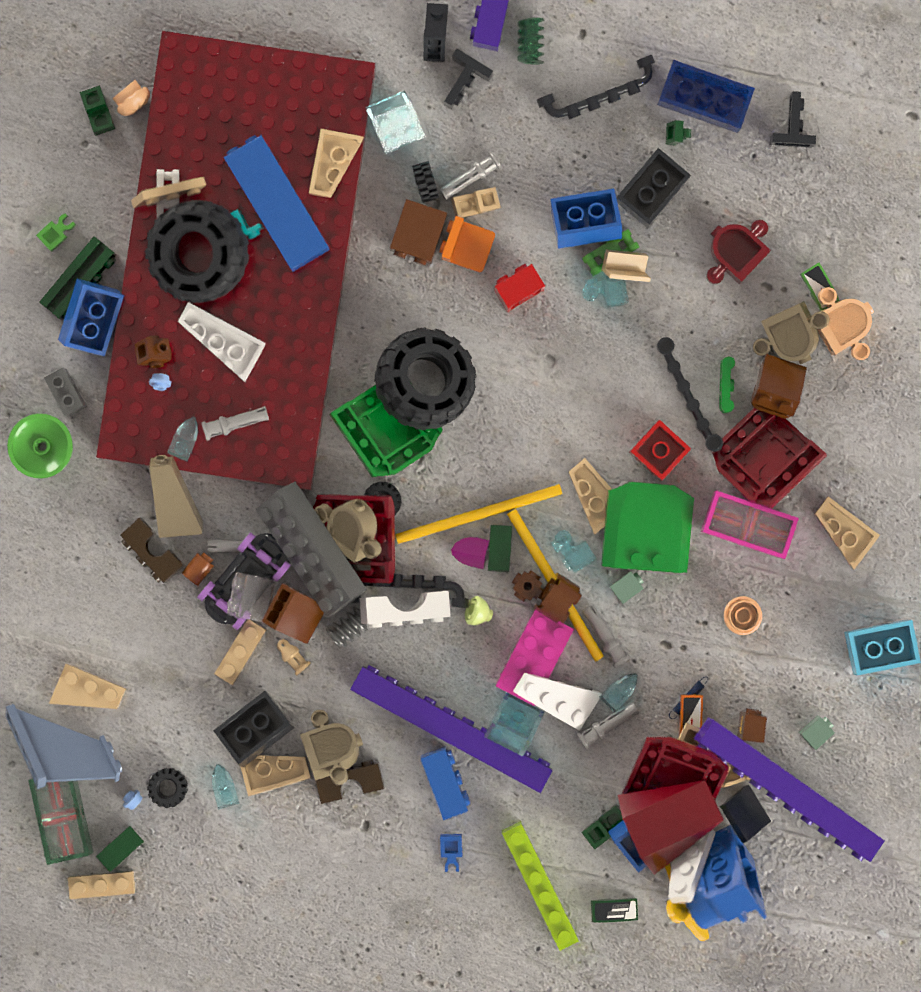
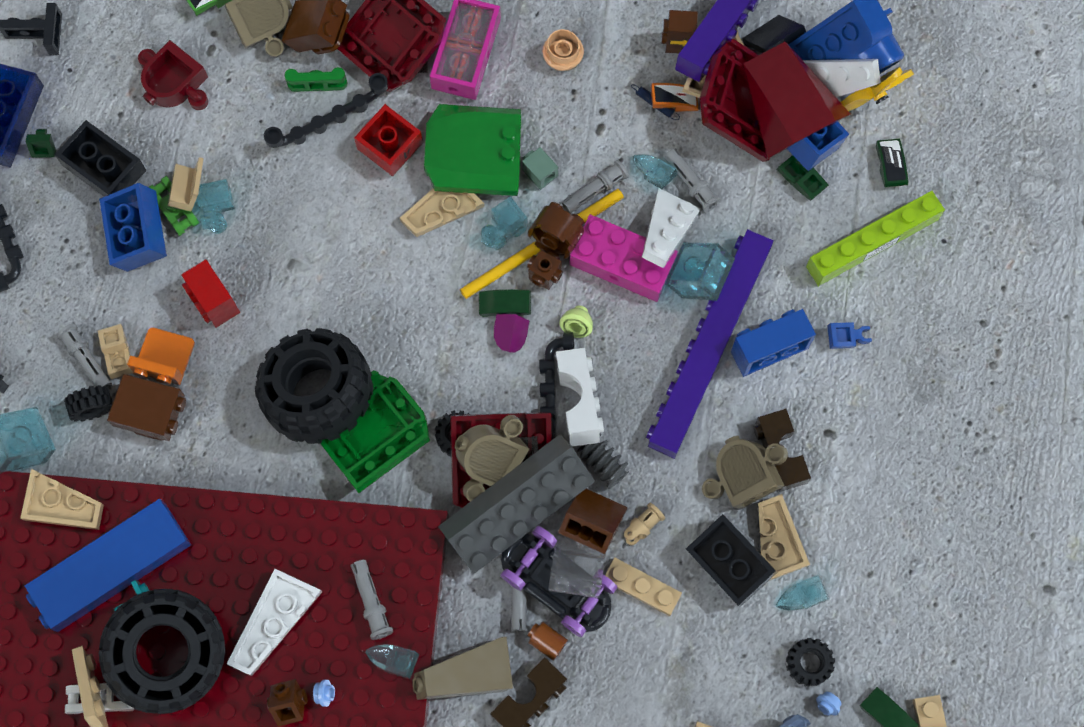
camera: 90 degrees left, 15 degrees down
(477, 514) = (467, 327): yellow piece -> none

